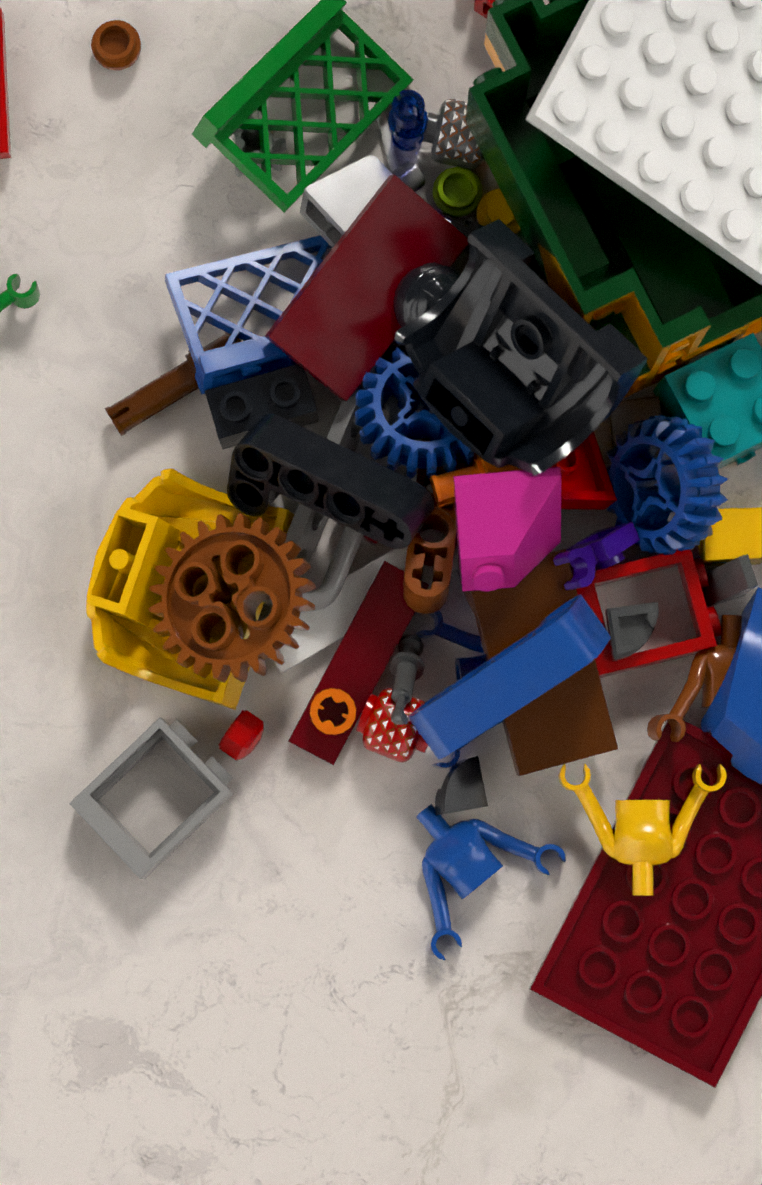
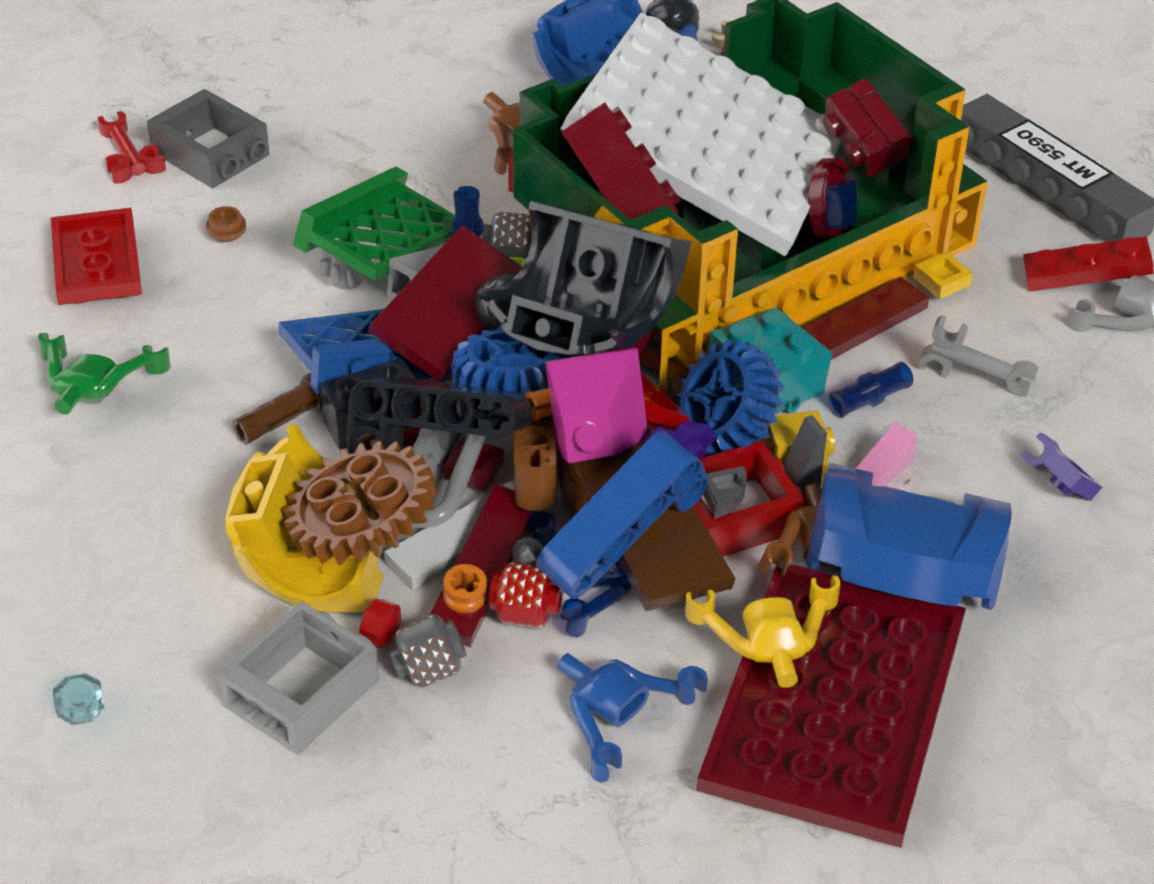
camera: 10 degrees left, 40 degrees down
(286, 783) = (428, 650): none -> dark grey head
(461, 788) = (597, 641): black tile -> none
(588, 197) = (617, 165): none -> dark red brick

